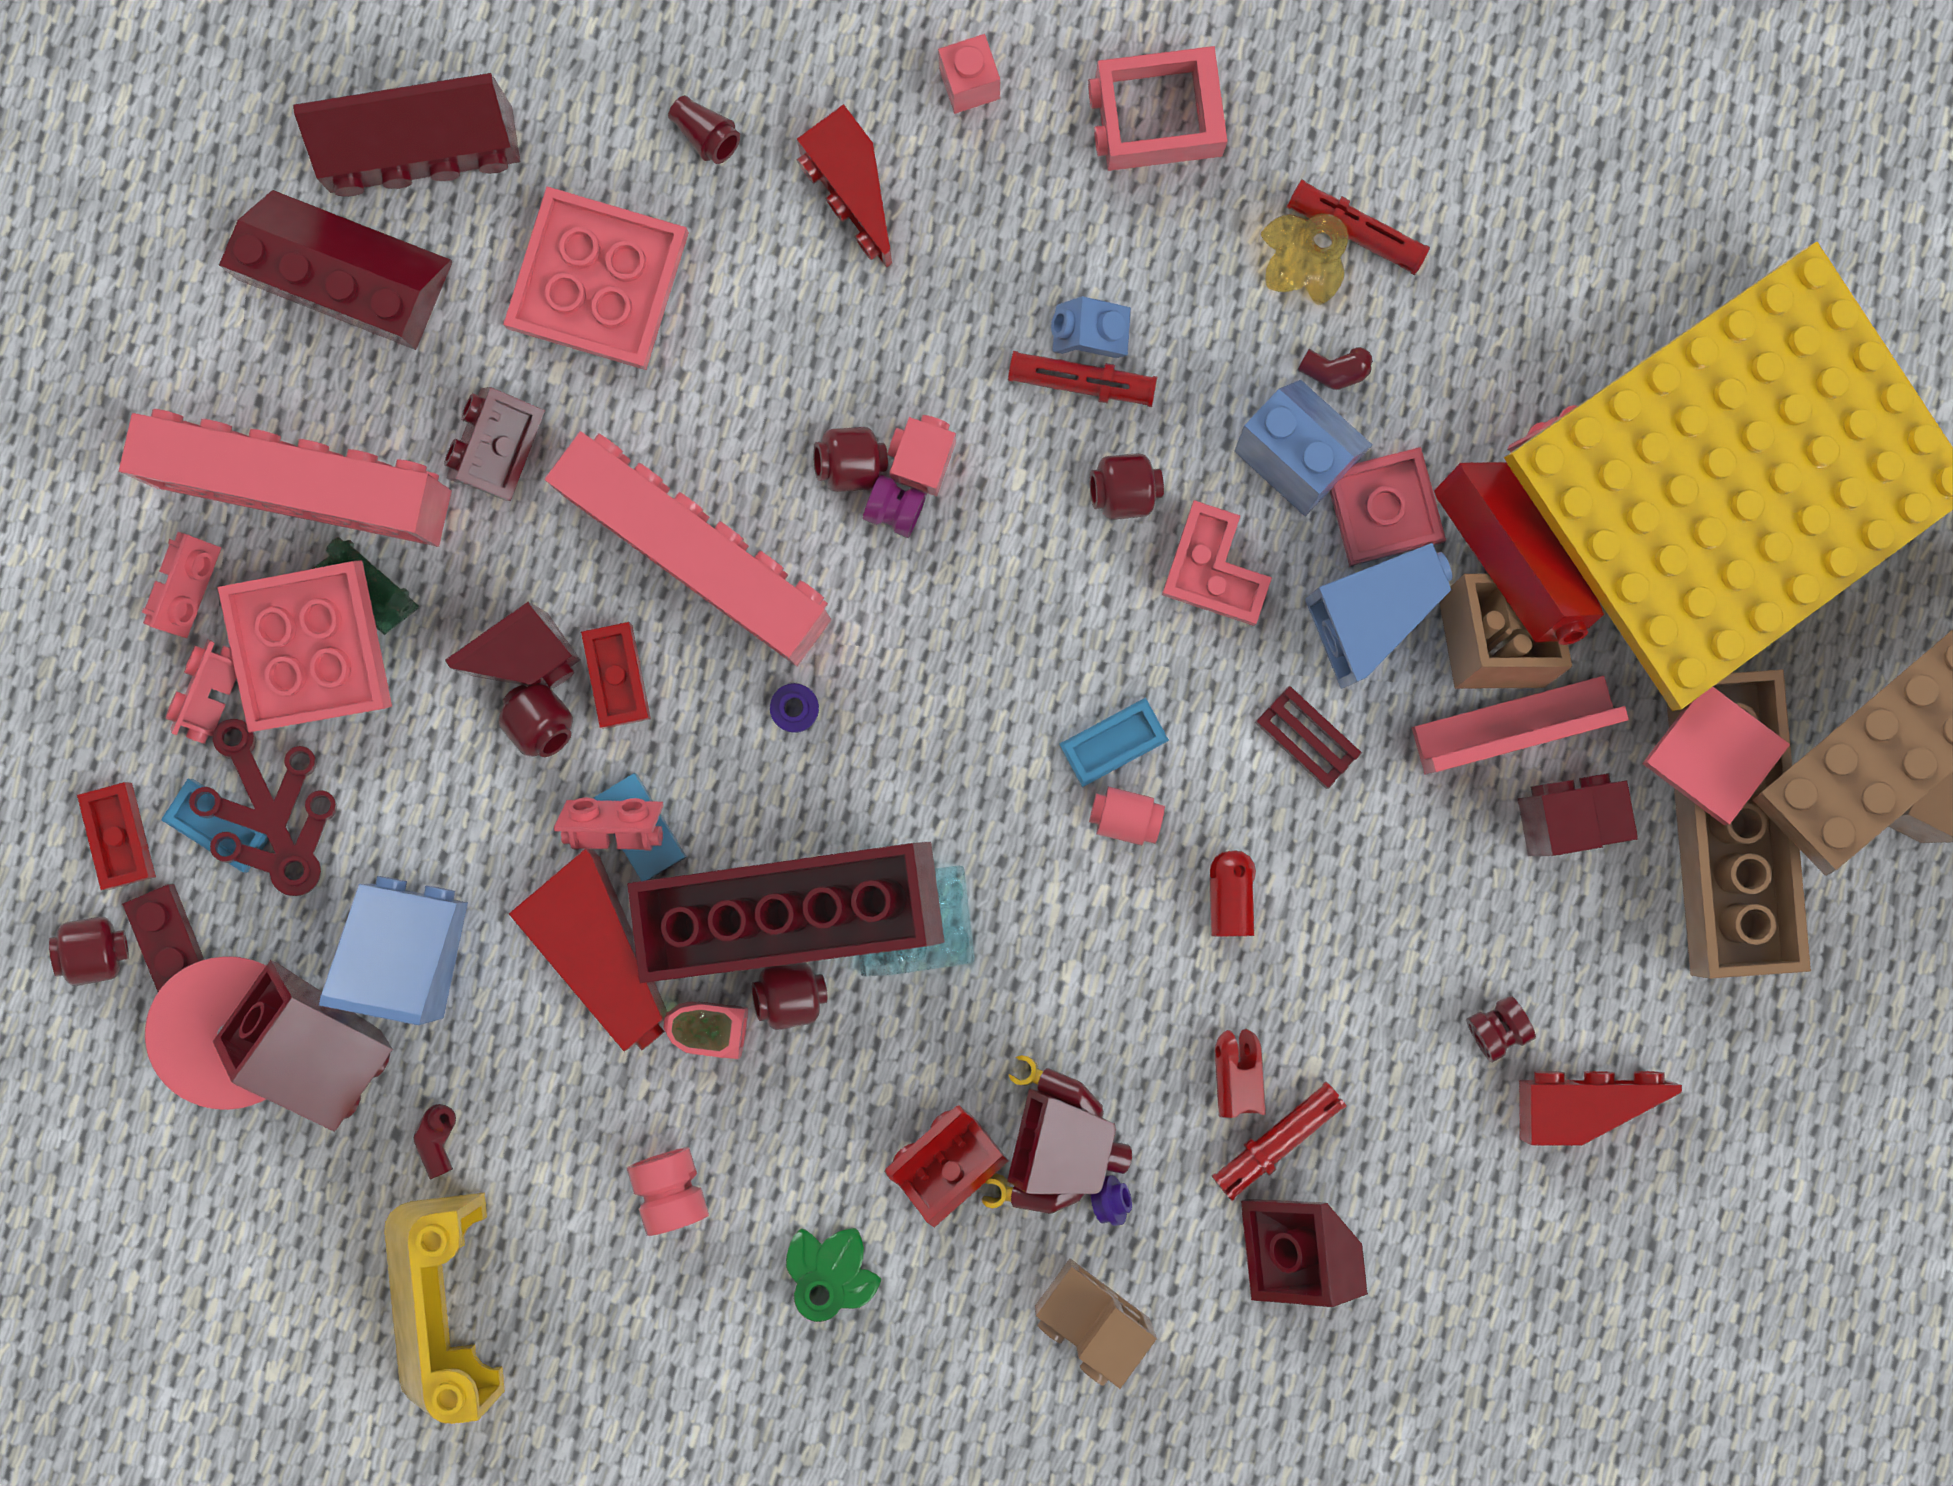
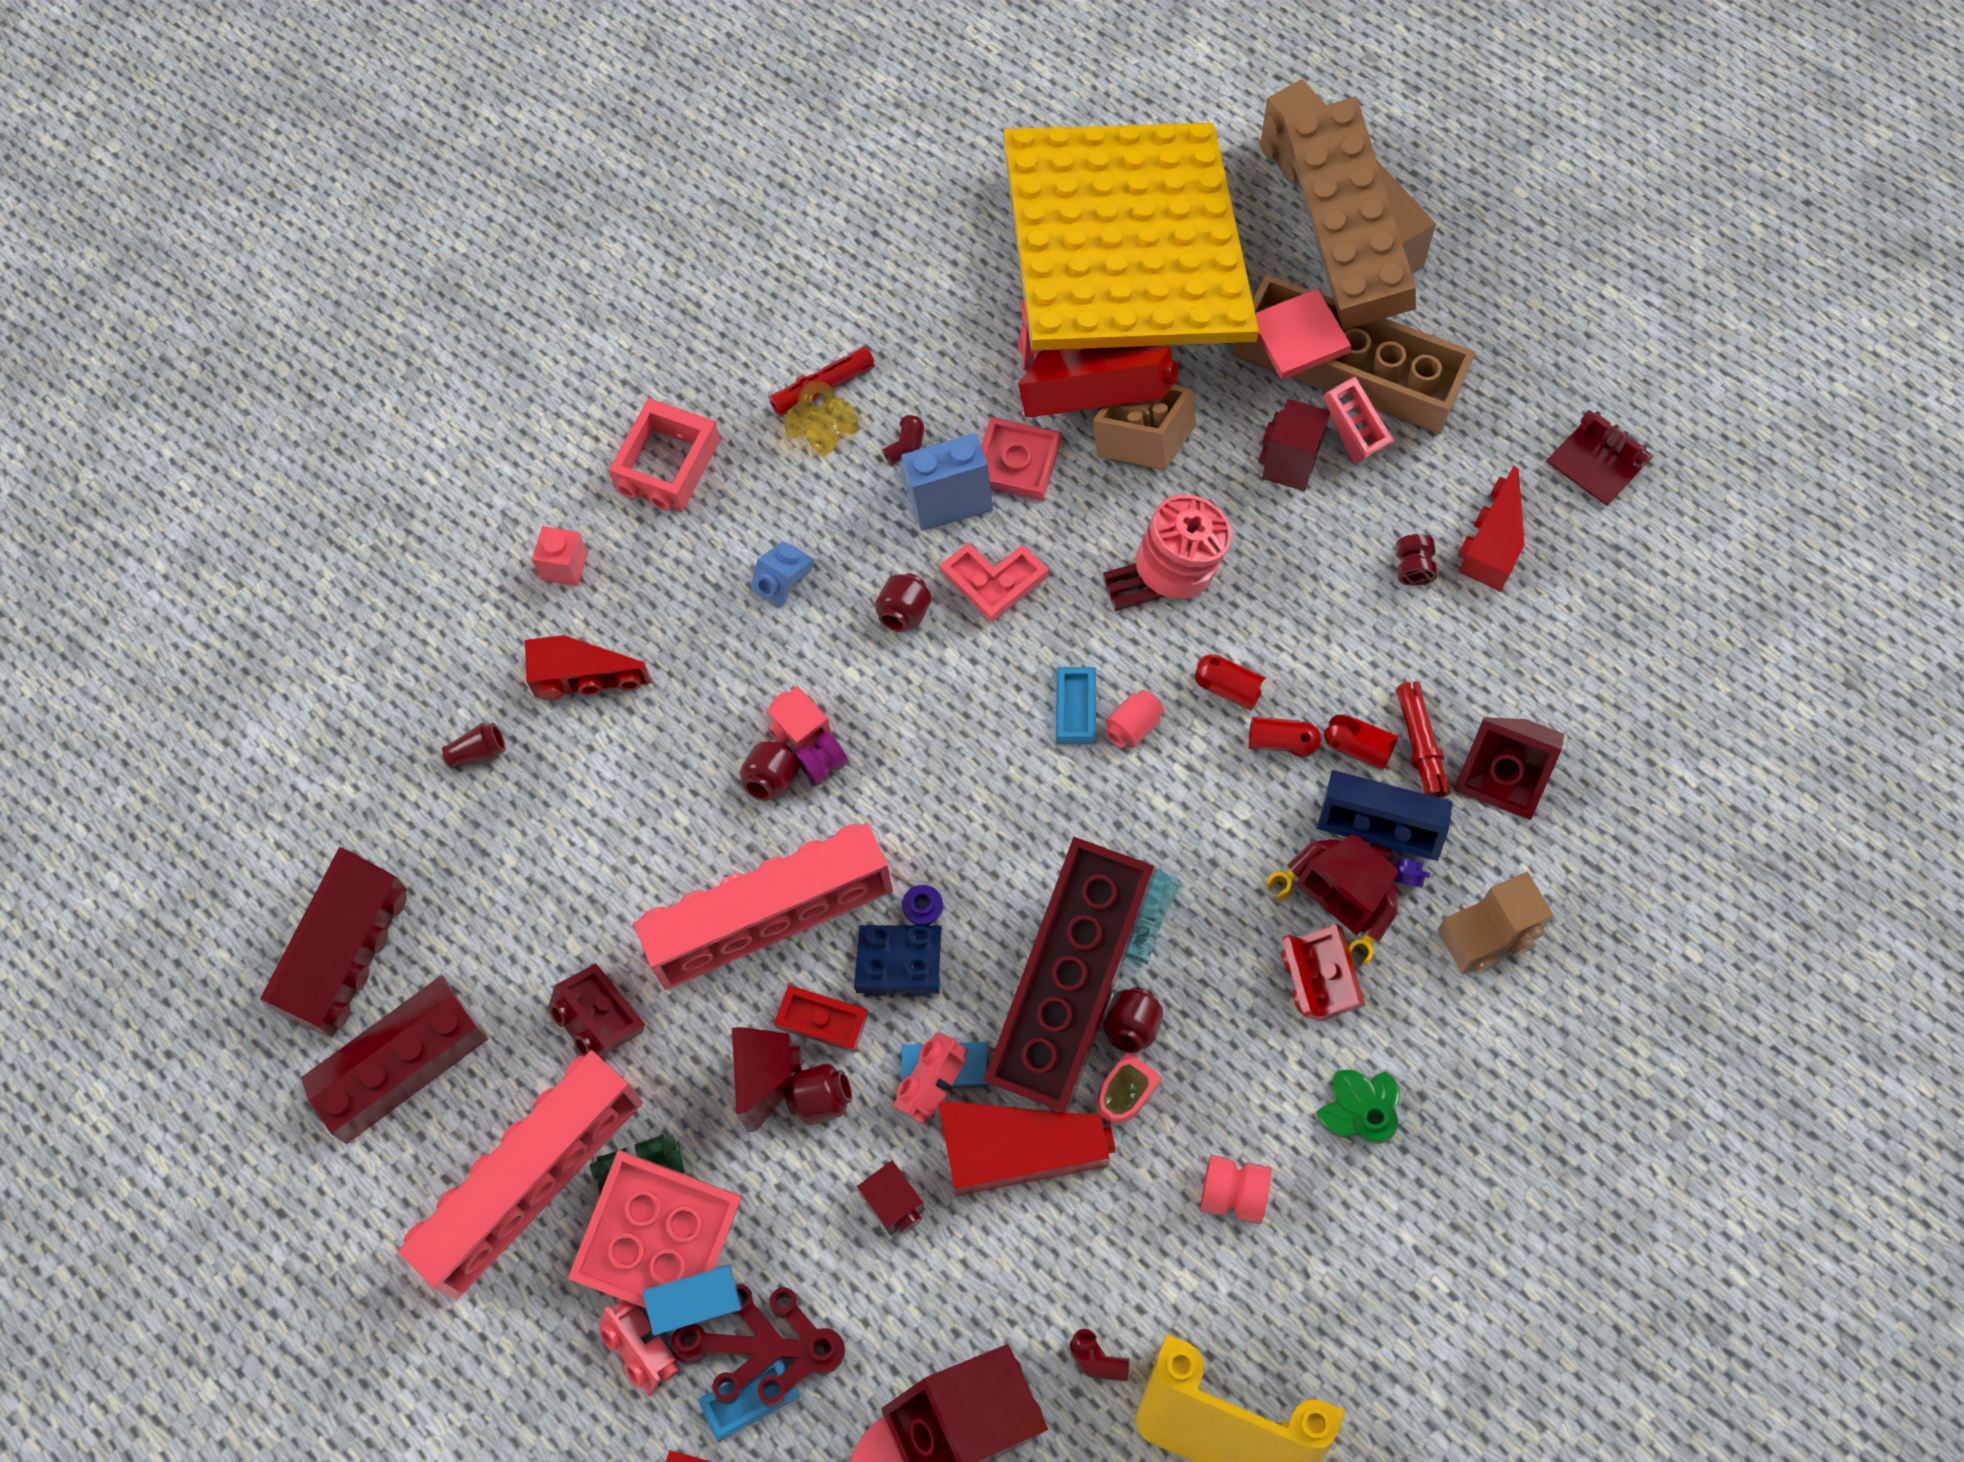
camera: 60 degrees left, 20 degrees down
(189, 568) = (532, 1301): coral hinge -> none
(265, 719) = (691, 1299): none -> dark azure tile
(396, 953) = (934, 1295): medium blue slope -> none
(472, 855) = (892, 1199): none -> dark red brick
(596, 278) = (526, 876): coral plate -> none
(721, 717) = (898, 960): none -> dark blue hinge
(1025, 366) = (823, 582): red pin -> none
(1160, 1145) = (1385, 815): none -> dark blue brick
(1198, 989) = (1283, 735): none -> red piece
(1335, 759) = (1183, 546): none -> coral wheel
(1376, 608) = (1085, 489): medium blue slope -> none
(1516, 725) = (1214, 441): coral fence -> none
(1650, 896) = (1373, 425): none -> coral slope
(1759, 1174) = (1600, 457): none -> dark red hinge

